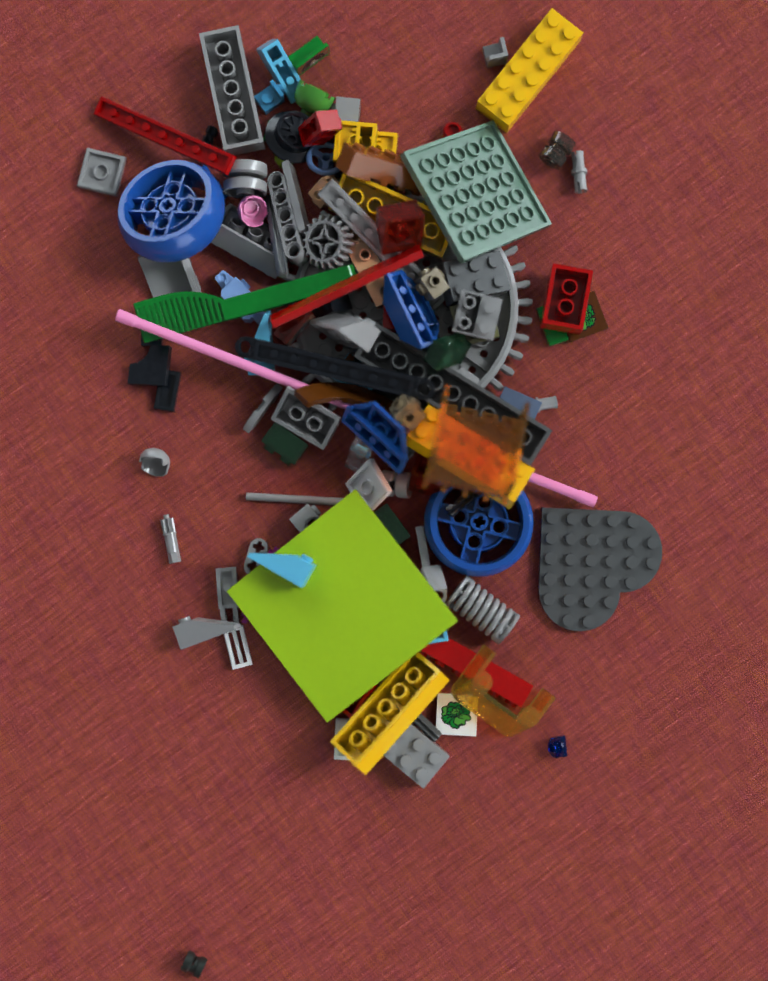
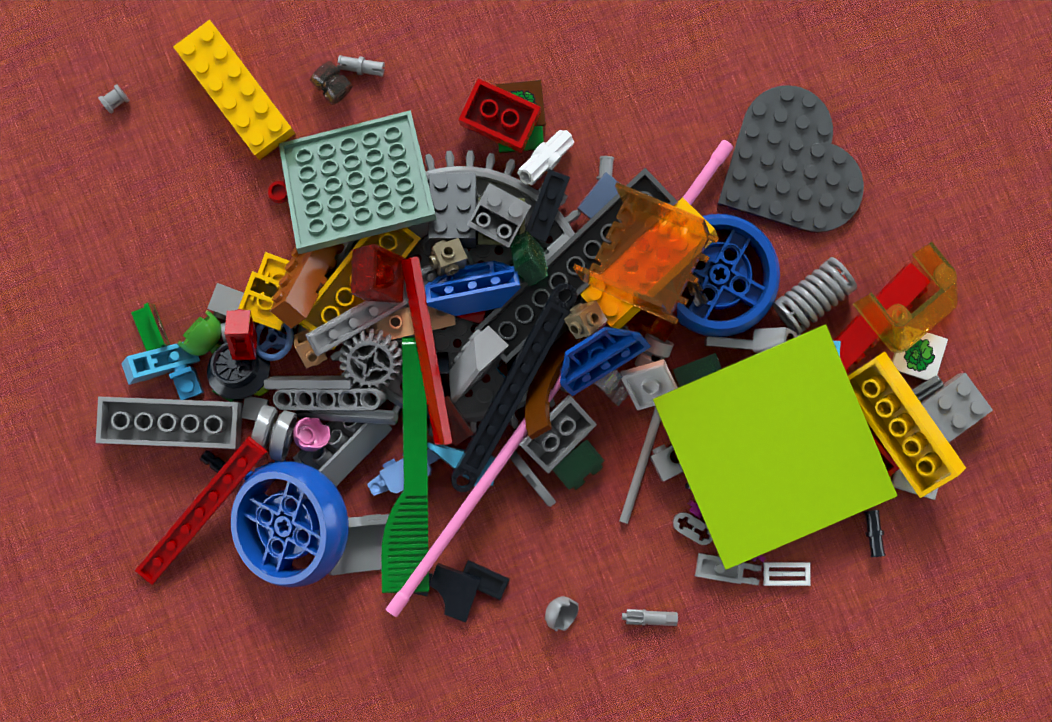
camera: 75 degrees left, 0 degrees up
(101, 172) = (220, 592): light grey tile -> none
(199, 629) = (760, 608): light grey slope -> none
(264, 156) = (252, 407): none -> light grey tile
(289, 566) = (719, 493): medium azure slope -> none
(291, 714) = (874, 533): none -> black pin
(495, 54) = (205, 121): light grey panel -> none
(499, 358) = (547, 205): none -> black plate
(541, 347) = (545, 157): none -> white piece
(557, 746) = (980, 254): clear blue plate -> none

